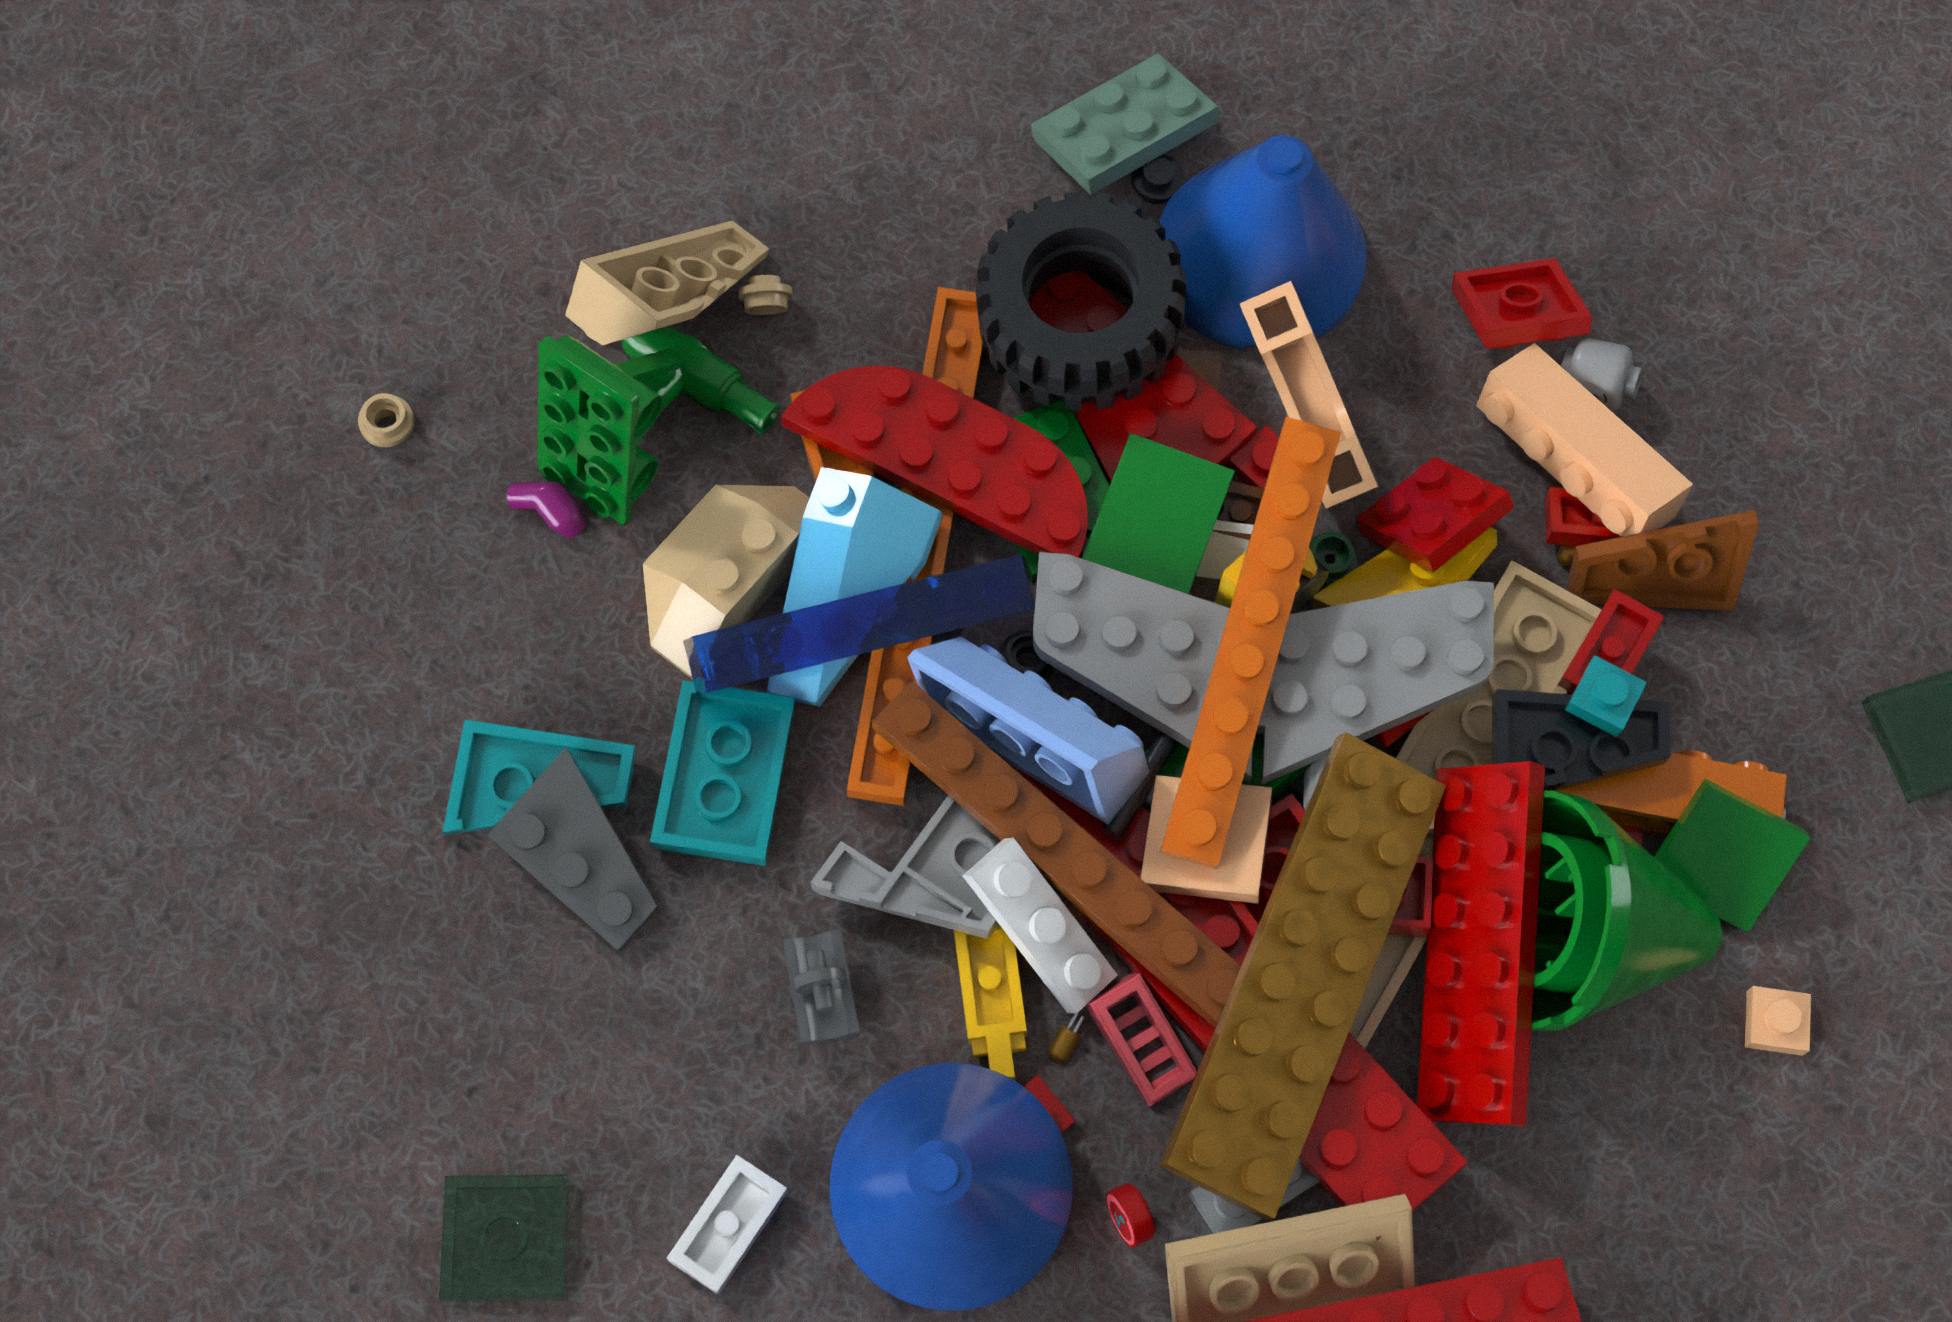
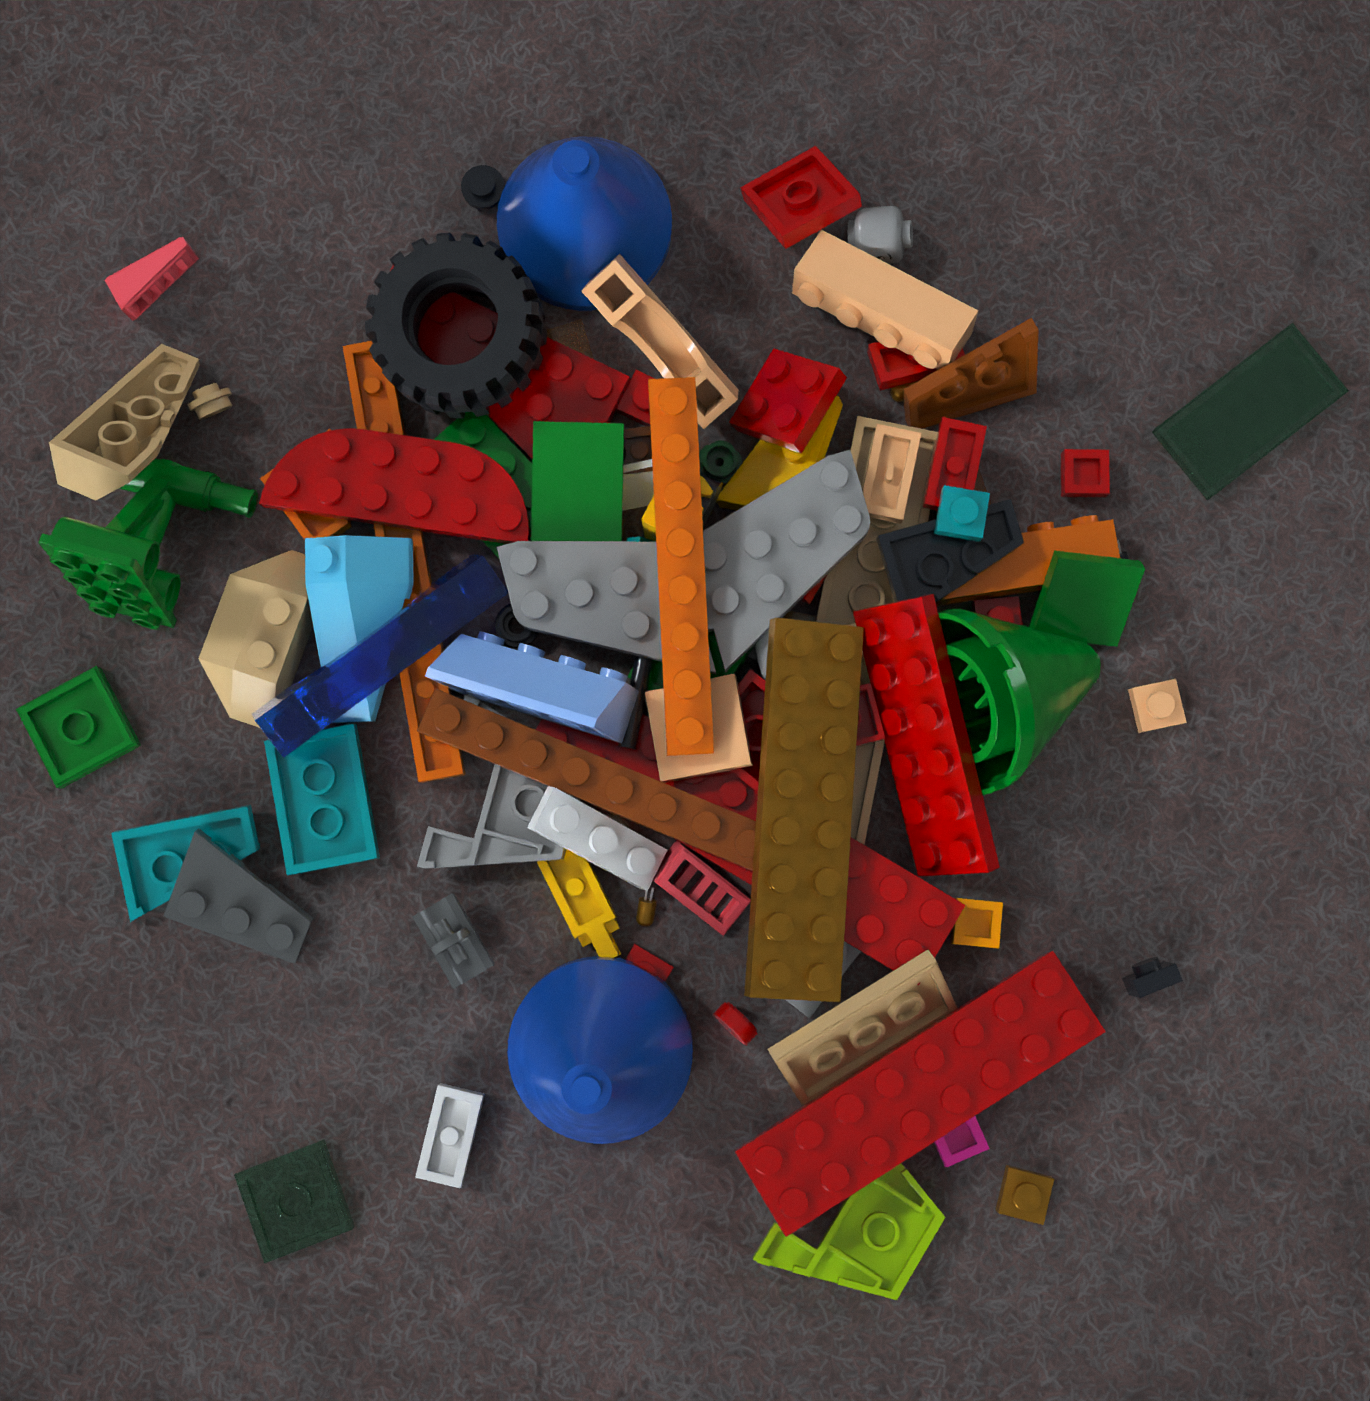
camera: 15 degrees left, 15 degrees up
(471, 595) = (78, 727): none -> green tile
(551, 502) = (109, 632): magenta arm -> none
(750, 145) = (149, 277): none -> coral slope
(1125, 123) = (441, 149): sand green plate -> none
(1473, 1202) = (978, 924): none -> light orange plate
(1532, 630) = (890, 472): none -> light nougat plate
(1766, 718) = (1085, 473): none -> red plate

